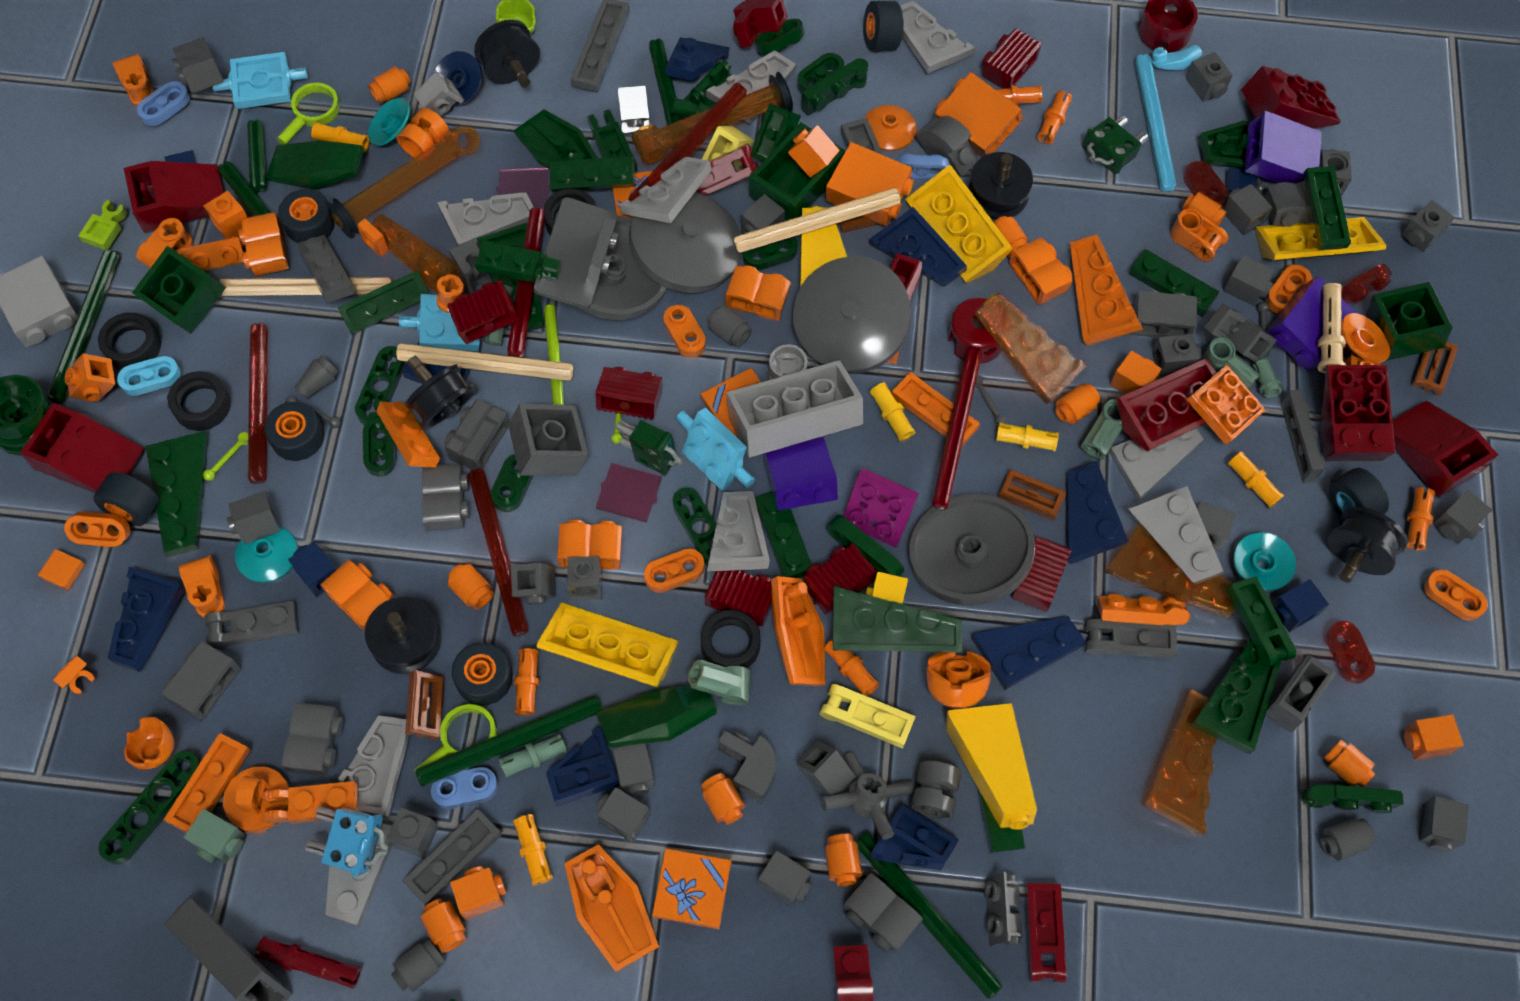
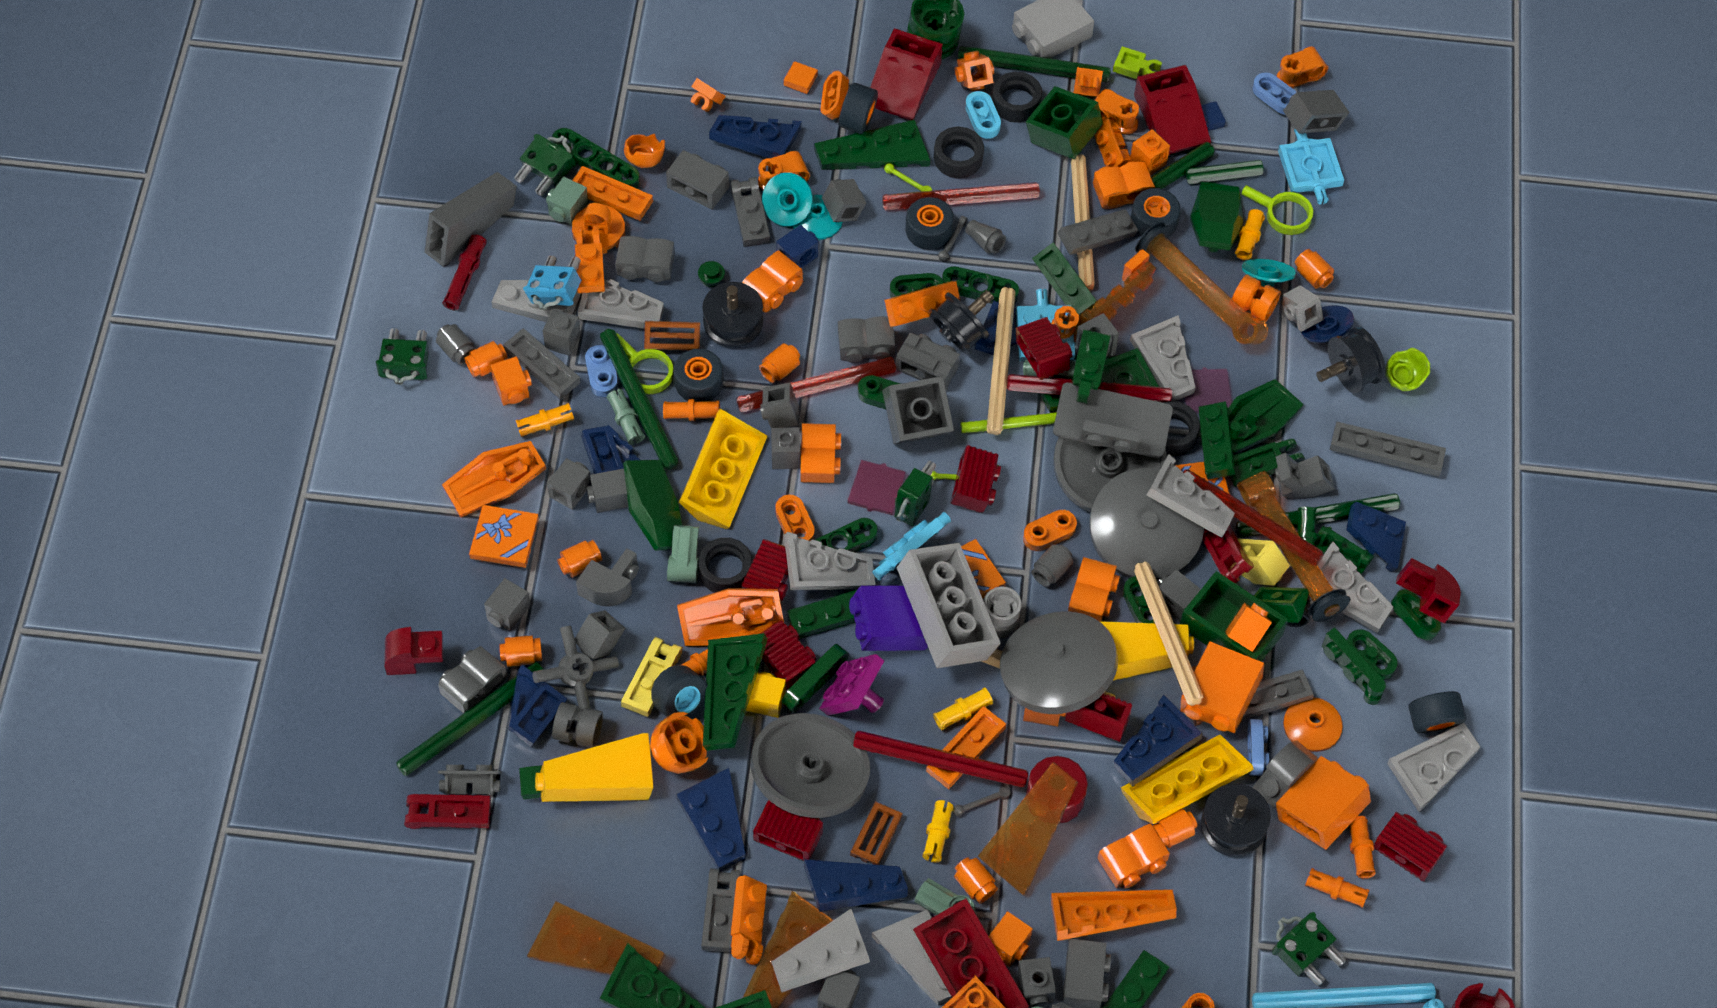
camera: 90 degrees right, 5 degrees down
(121, 271) = (1088, 82): none -> orange tile
(146, 863) = (546, 161): none -> dark green piece
(260, 581) = (776, 199): none -> teal dish
(337, 665) = (711, 273): none -> dark green plate
(896, 680) = (679, 691): none -> black wheel

